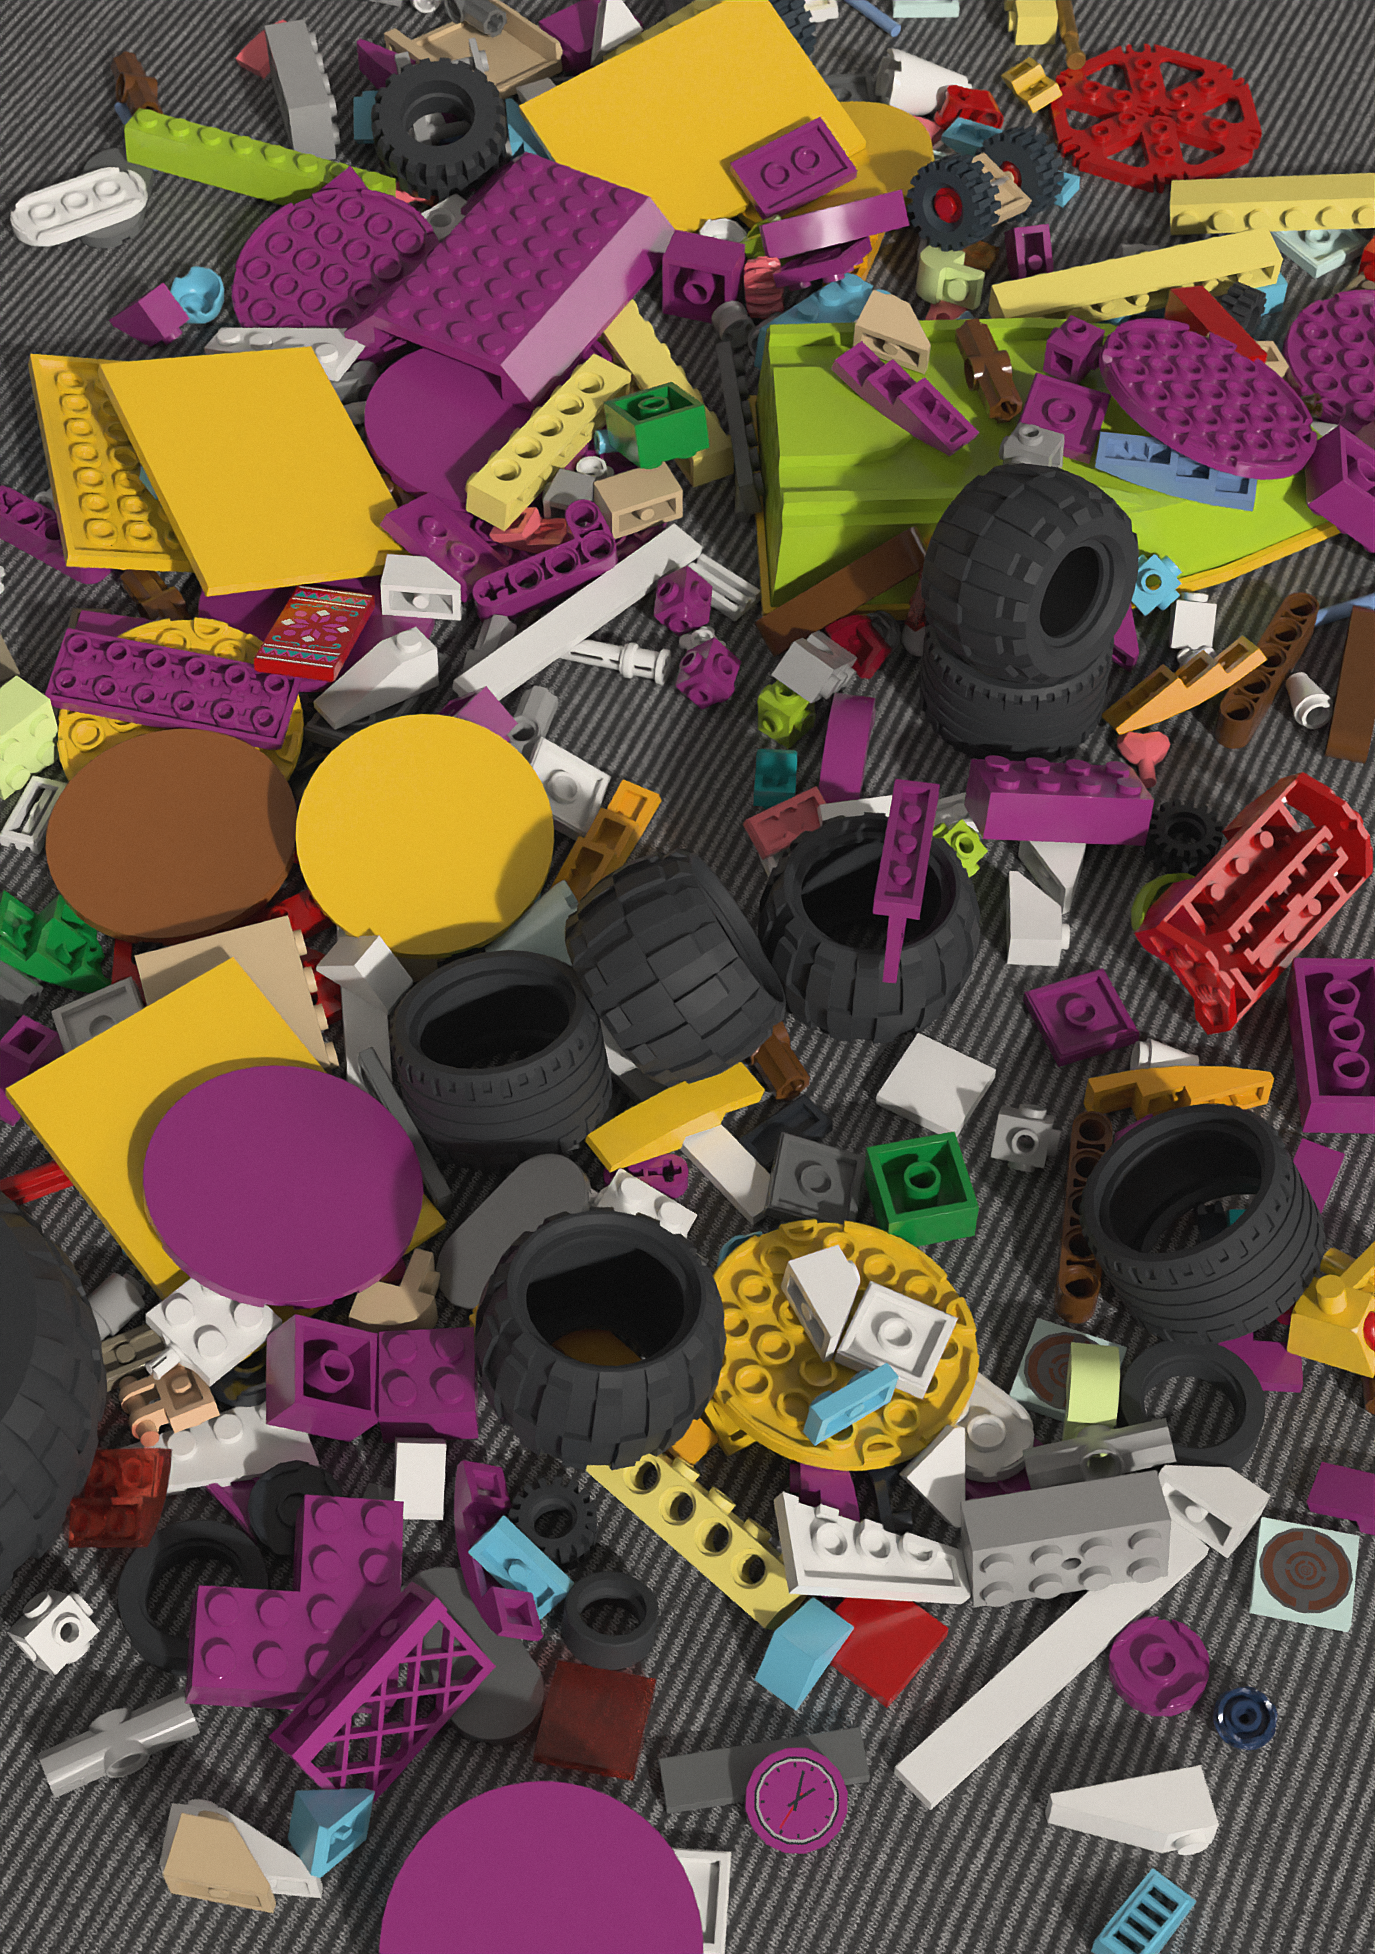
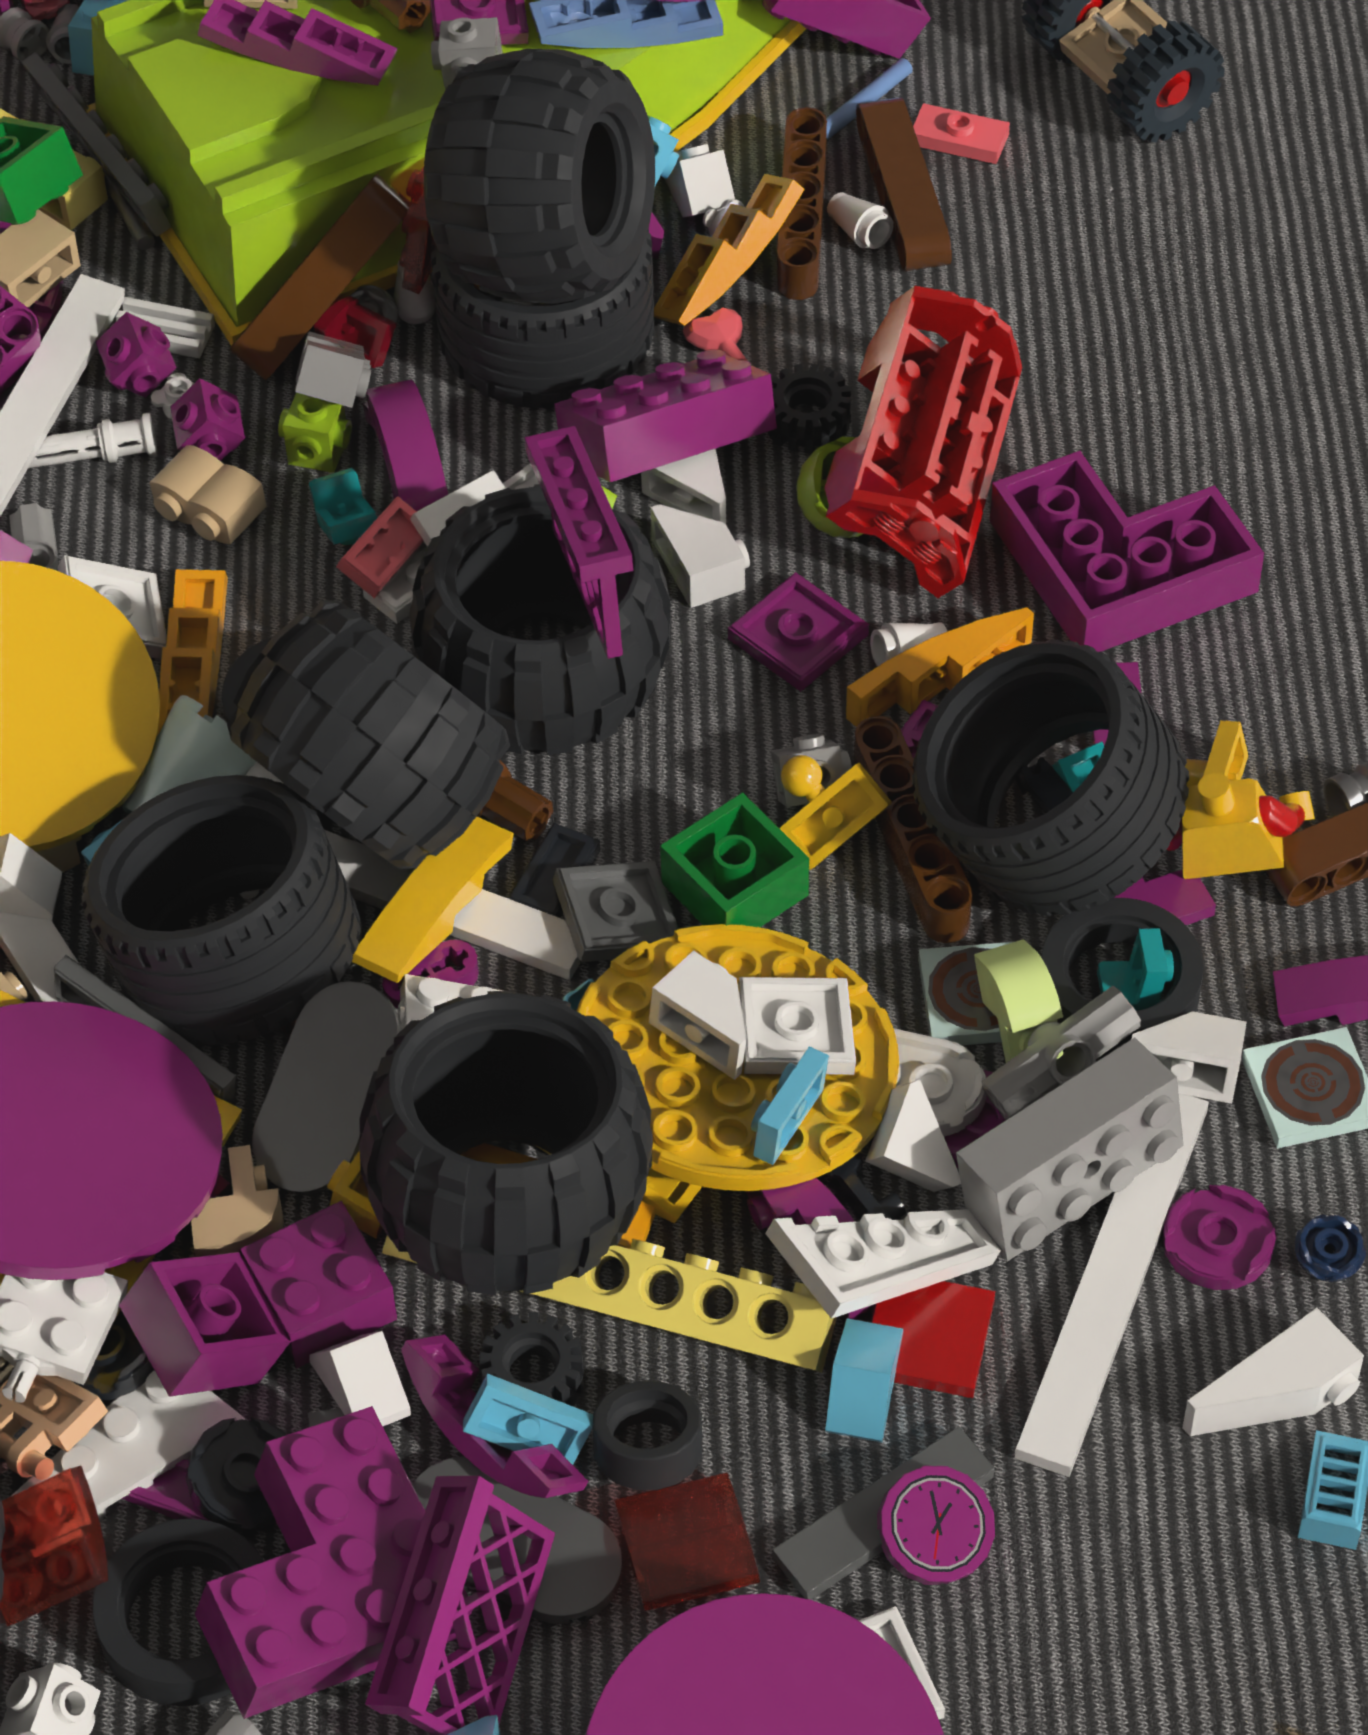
camera: 25 degrees left, 0 degrees up
(679, 730) = (207, 494): none -> tan brick
(935, 1086) = (686, 760): white tile -> none
(1022, 1176) = (832, 812): none -> yellow plate
(1200, 1421) = (1144, 974): none -> teal bracket

